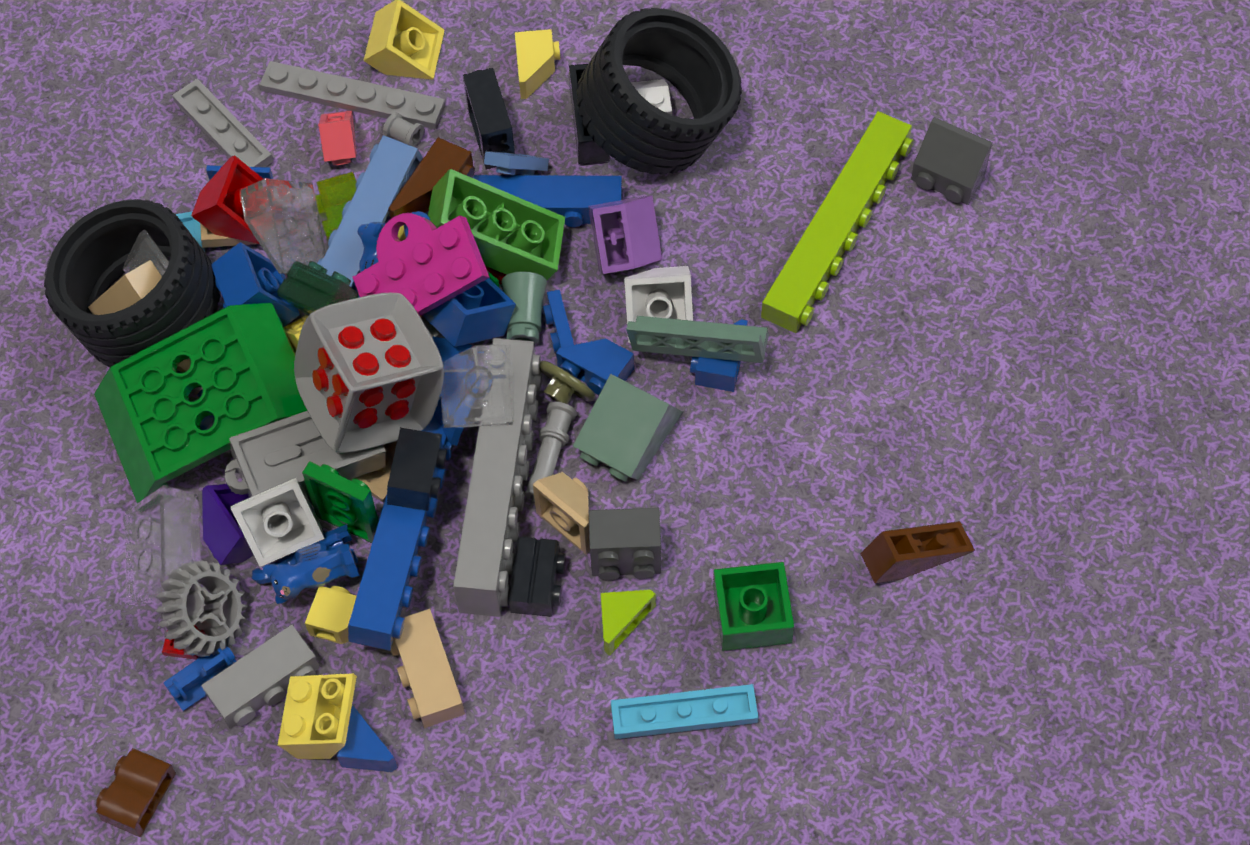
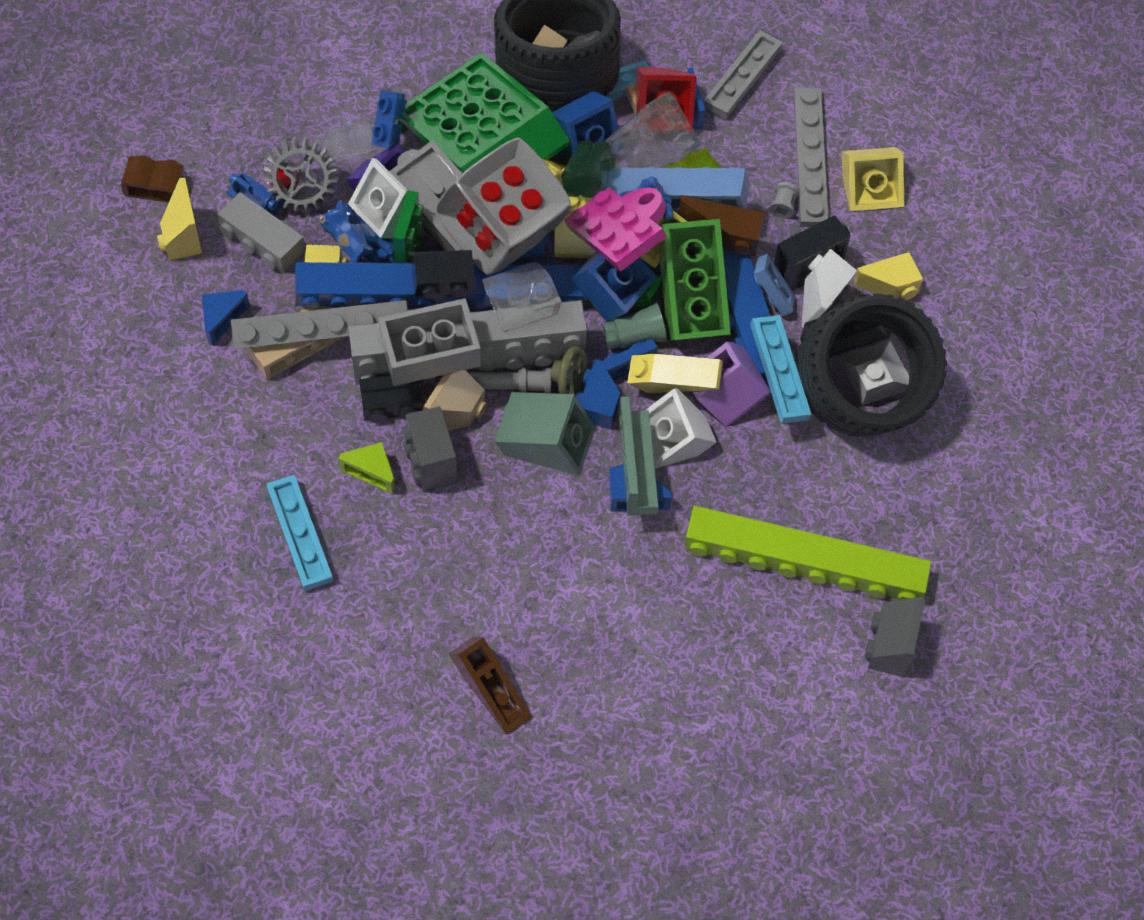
camera: 70 degrees right, 0 degrees up
(170, 487) = (389, 107): none -> blue hinge
(224, 763) = (178, 226): none -> light yellow slope
(316, 715) = (232, 270): light yellow slope -> none
(337, 137) = (761, 153): coral slope -> none
(429, 627) = (308, 324): none -> light grey plate
(515, 494) = (429, 342): none -> light grey brick
(541, 114) = (824, 284): none -> white slope
(603, 275) = (665, 372): none -> light yellow slope
(627, 178) = (780, 369): none -> medium azure plate
(753, 606) = (400, 559): green brick -> none

